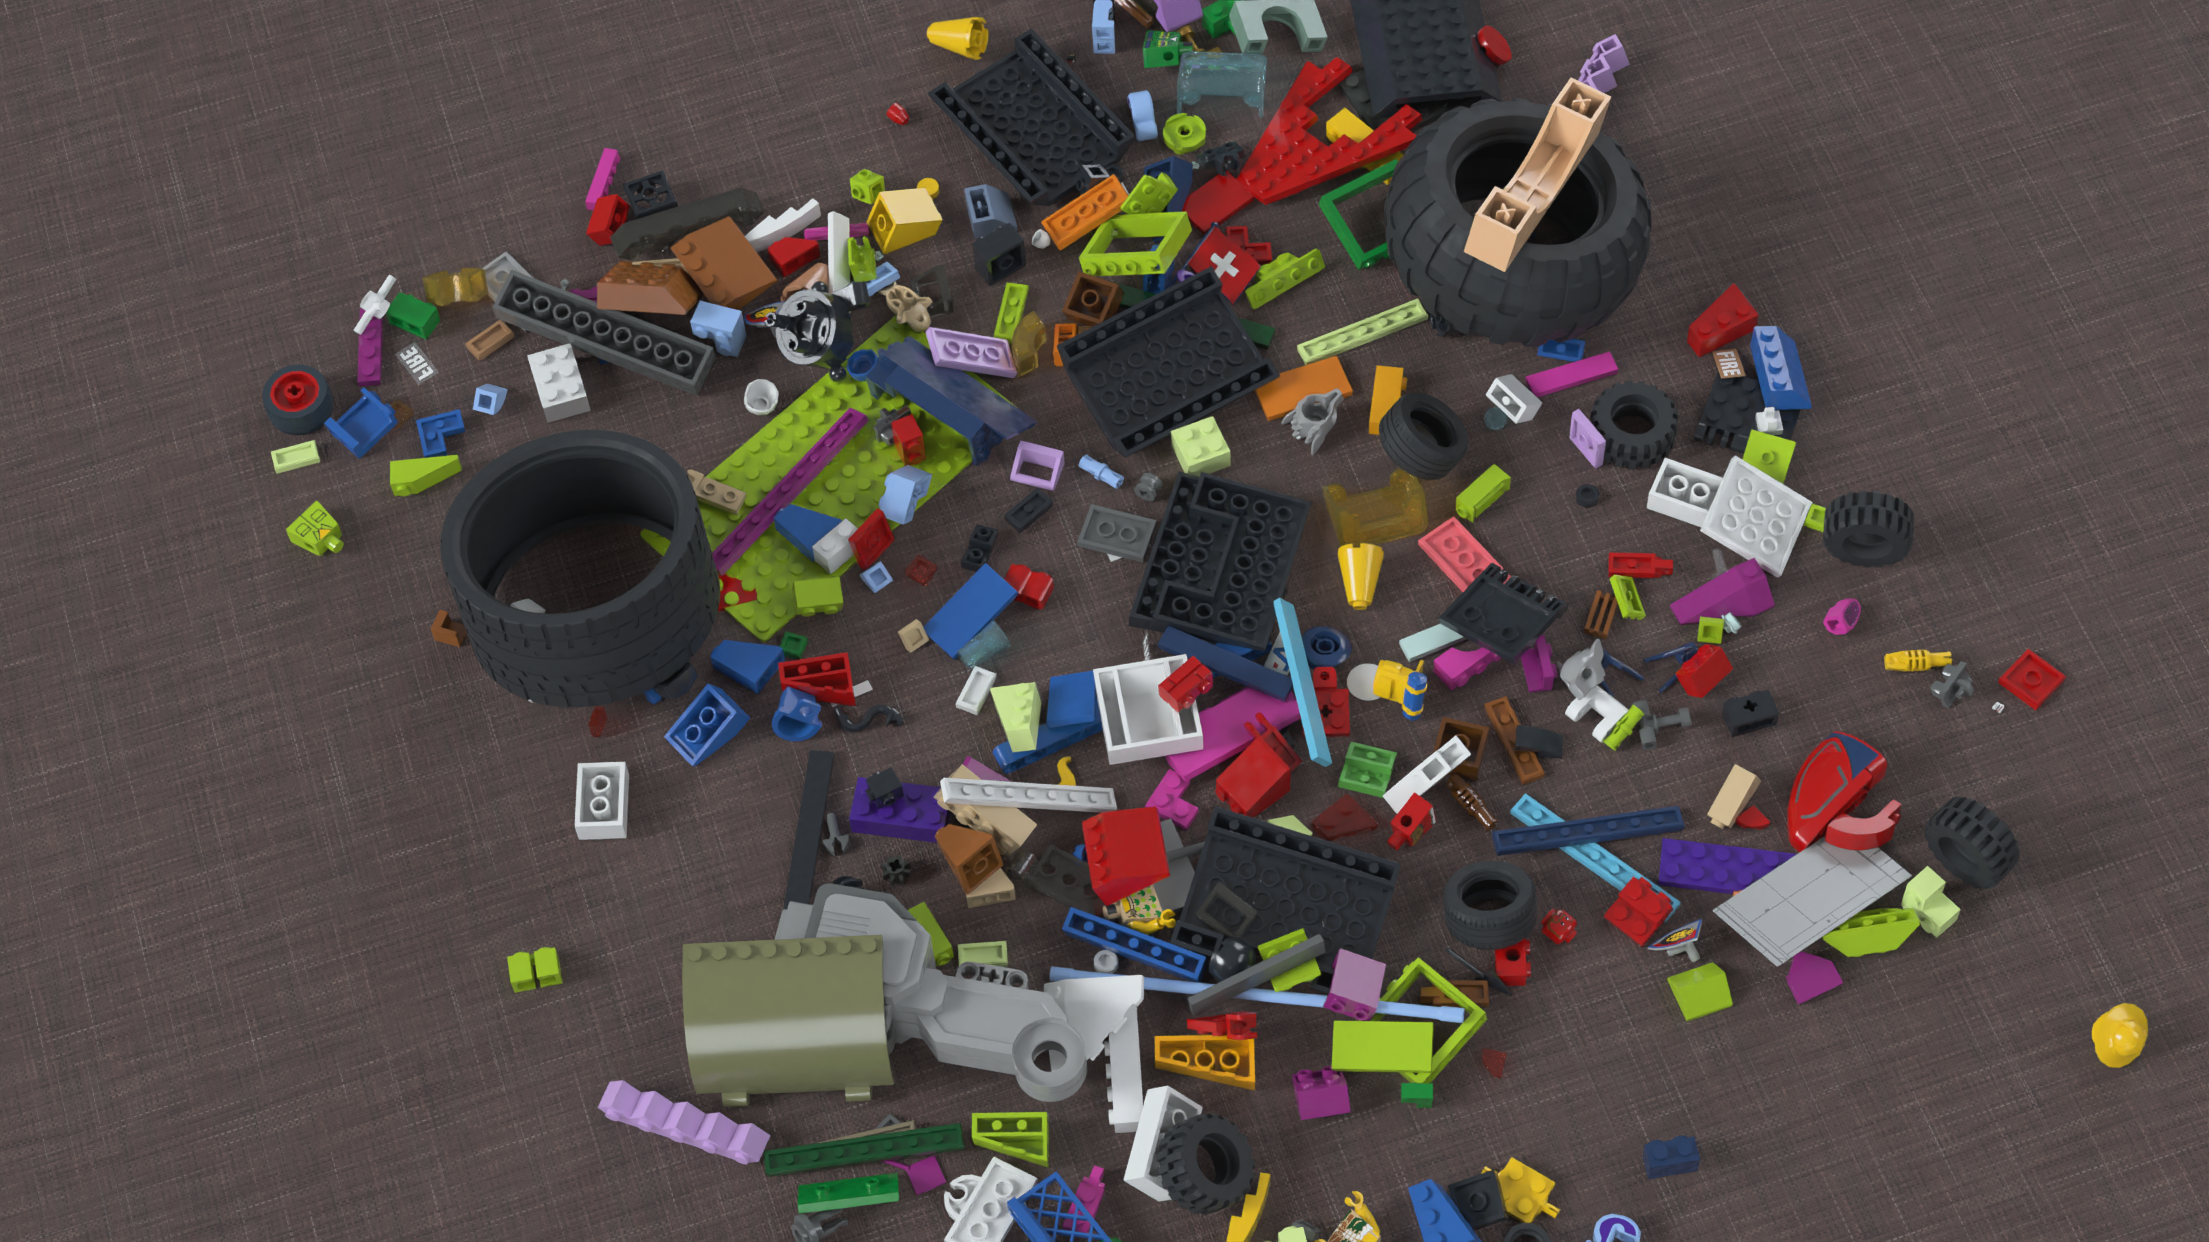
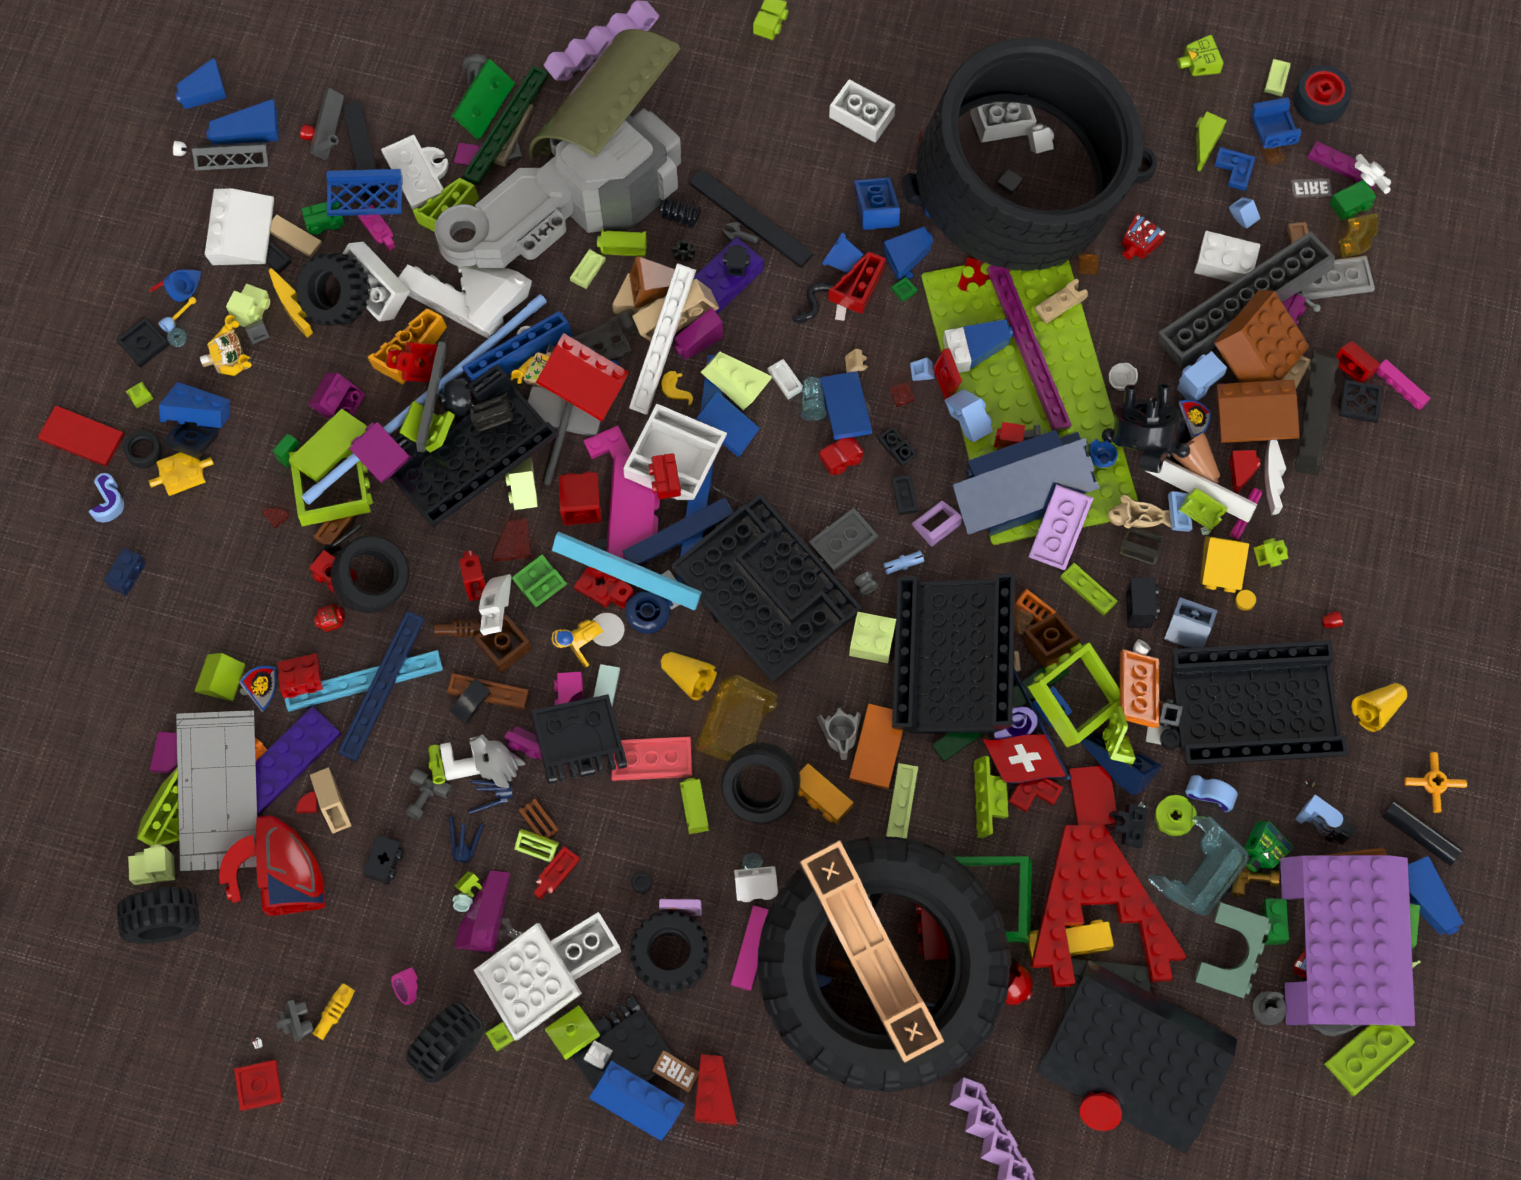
camera: 120 degrees right, 10 degrees up
(817, 596) = (927, 318): lime brick -> none
(1026, 341) = (1050, 577): clear yellow brick -> none
(1274, 740) = (597, 525): red hinge -> none
(1704, 670) = (436, 850): red brick -> none

